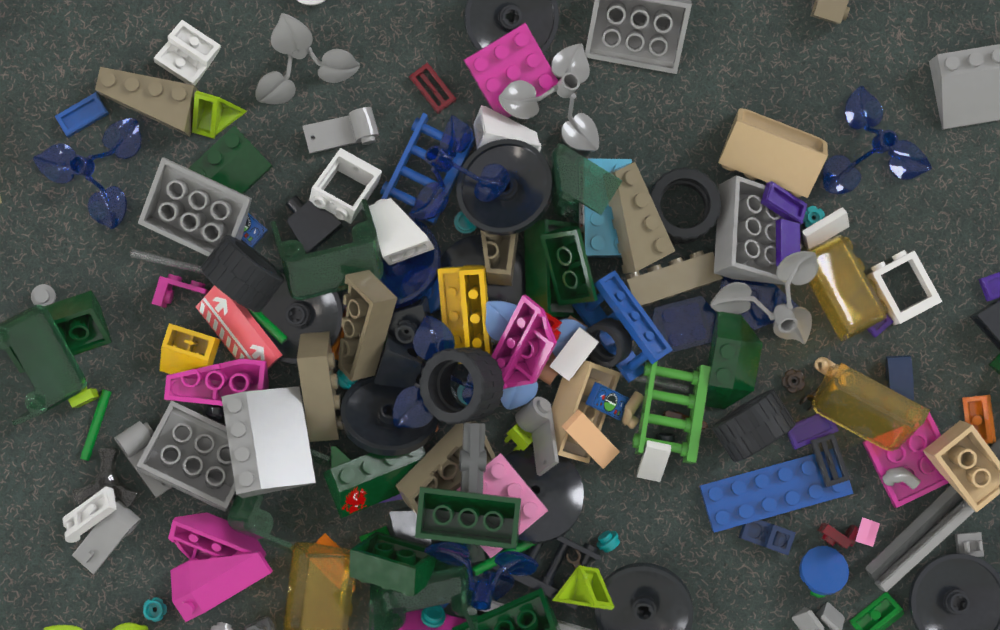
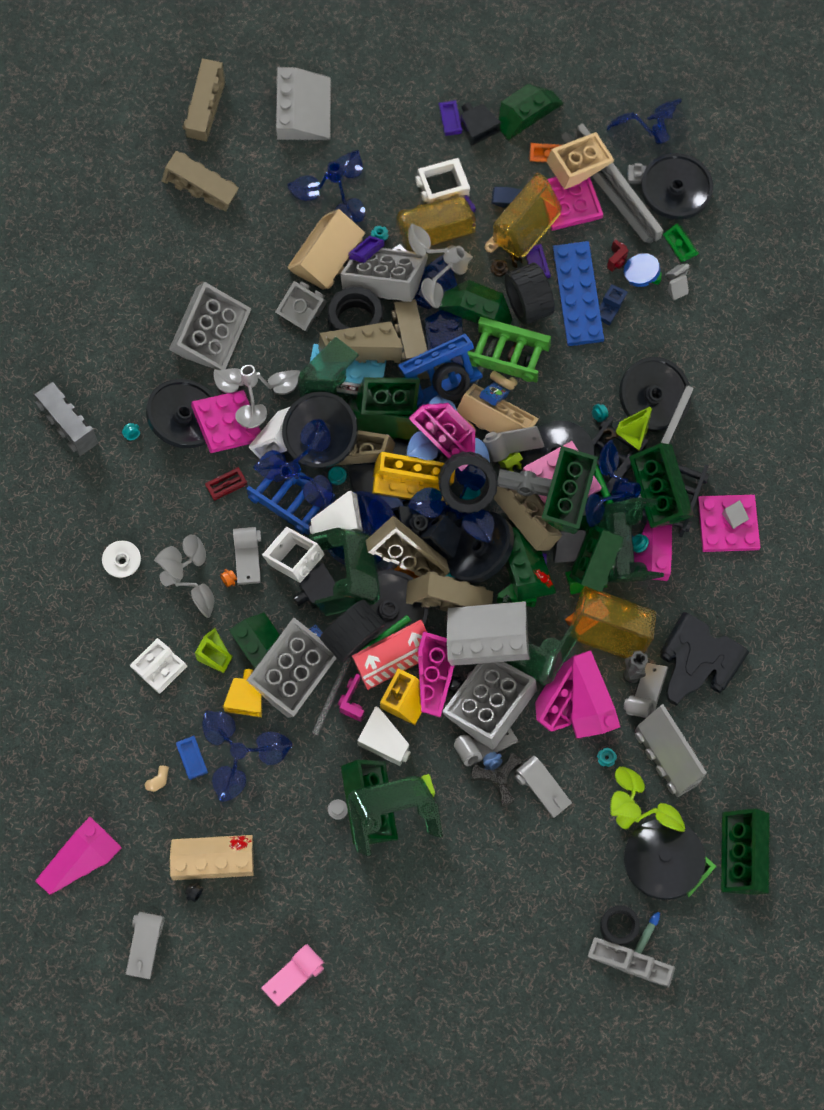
camera: 80 degrees left, 15 degrees down
(47, 83) = (159, 781): none -> tan arm
(89, 514) = (523, 791): white plate -> none
(95, 425) = (451, 783): green bar -> none
(127, 470) = (492, 761): none -> medium blue plate
(134, 336) = (384, 739): none -> white slope
(151, 154) = (243, 697): none -> yellow torso
(153, 97) = (193, 690): dark tan wedge -> none
(309, 114) = (228, 578): none -> orange plate
(574, 353) = (452, 397): white tile -> none
(590, 439) = (521, 408): light nougat tile -> none
(653, 461) = (546, 369): white tile -> none
(690, 135) = (301, 305): none -> light grey plate
(786, 239) = (396, 250): dark purple tile -> none
(822, 440) = (562, 254): black tile -> none
(825, 228) = (389, 226): white tile -> none
(867, 532) = (618, 234): bright pink slope -> none
(900, 474) = (579, 207): light grey arm -> none

